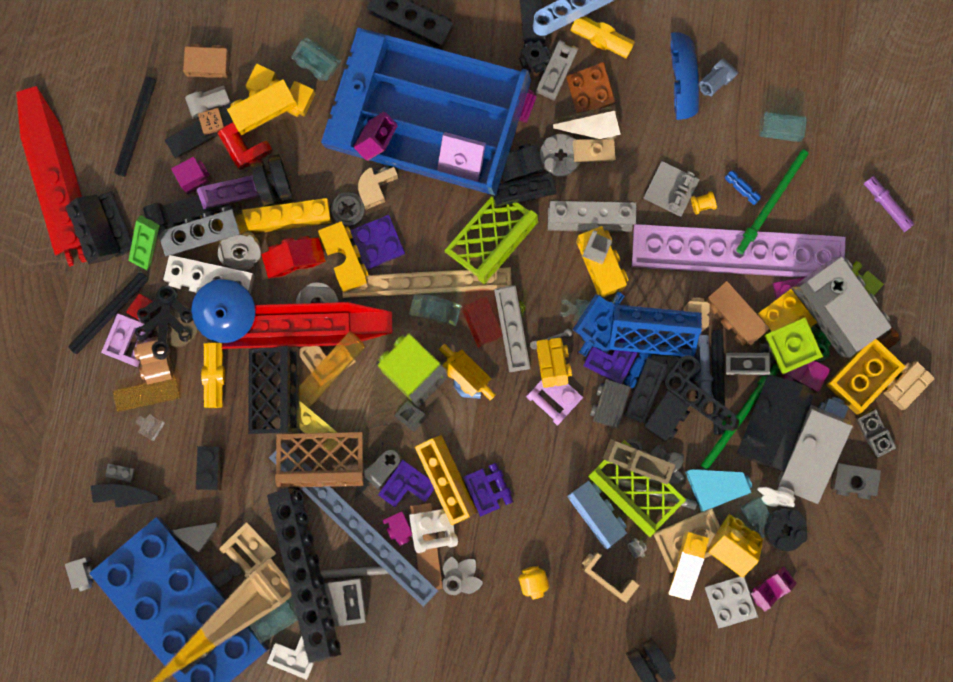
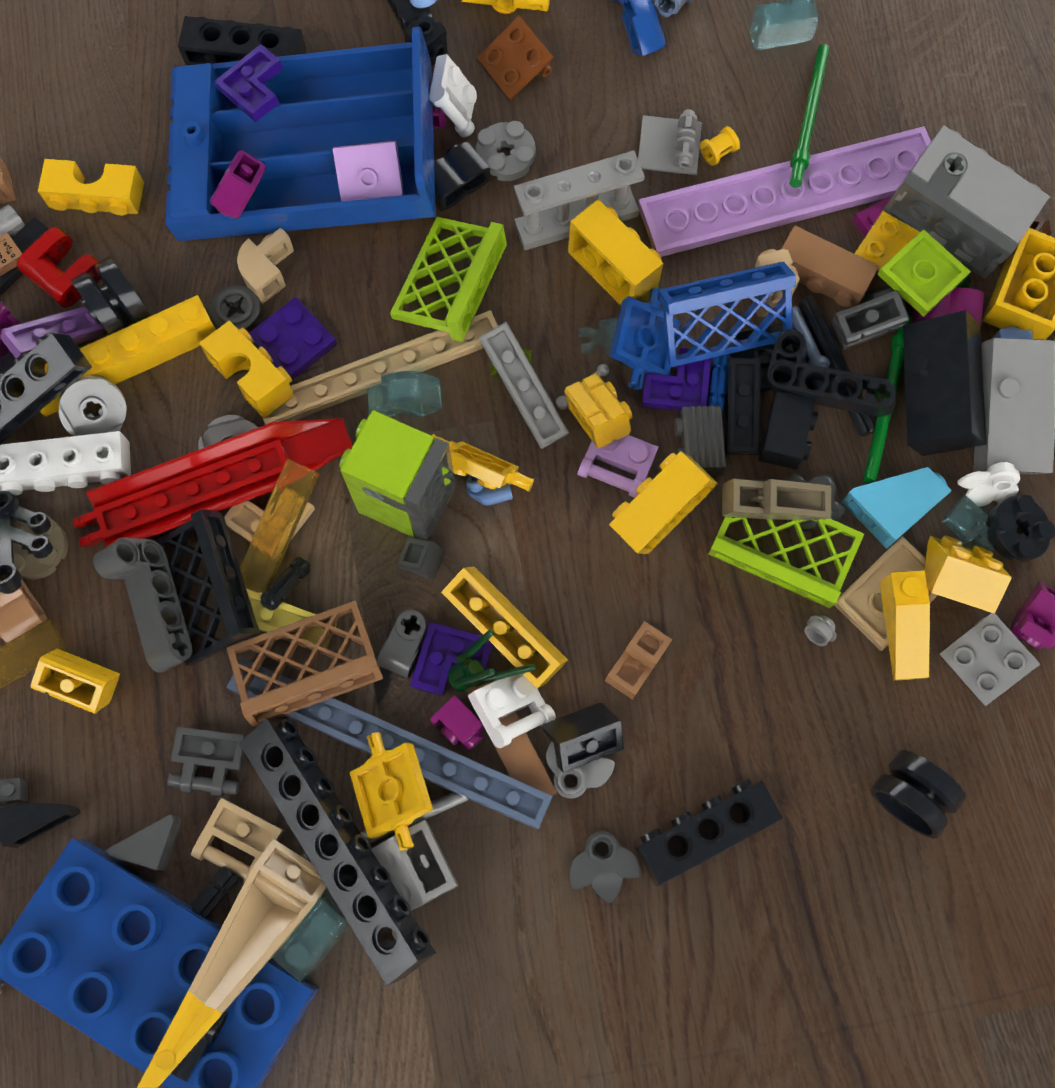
camera: 20 degrees left, 10 degrees down
(149, 426) = (28, 705): clear tile -> none
(182, 422) = (75, 680): none -> yellow brick
(208, 468) = (137, 735): black brick -> none
(213, 375) = (106, 602): yellow piece -> none
(237, 307) = (113, 498): blue dish -> none
(241, 388) = (152, 598): none -> dark grey beam
(247, 490) = (206, 749): none -> dark grey plate
(261, 106) = (66, 204): yellow brick -> none
(291, 660) = (359, 992): white plate -> none
(293, 256) = (171, 388): red brick -> none
(316, 59) = (128, 130): clear light blue brick -> none
(323, 405) = (285, 583): none -> black axle
(345, 555) = (390, 791): none -> yellow plate
(401, 63) = (246, 80): none -> dark purple plate
(415, 501) = (471, 672): none -> dark green plant
(454, 643) = (605, 871): none -> dark grey plate
(470, 561) = (584, 736): none -> black panel
(481, 322) = (476, 393): clear red hinge -> none
(481, 490) = (564, 629): dark purple plate -> none
(520, 526) = (638, 660): none -> medium nougat slope
(524, 189) = (472, 206): black tile -> none
(533, 582) = (691, 733): yellow head -> none
(541, 104) = (453, 94): none -> white plate
(556, 70) = (463, 44): light grey plate -> none
(556, 642) = (759, 814): none -> black brick
(567, 439) = (662, 502): none -> yellow brick
(593, 123) = (536, 93): slope -> none
(594, 150) = (548, 127): tan plate -> none
(597, 248) = (603, 226): light grey panel -> none
(598, 514) = (744, 601): light blue slope -> none
(626, 591) = (829, 702): tan panel -> none
(668, 497) = (839, 543): light grey bar -> none
(743, 187) = (762, 113): blue axle -> none
(889, 204) = (965, 75): medium lavender pin -> none

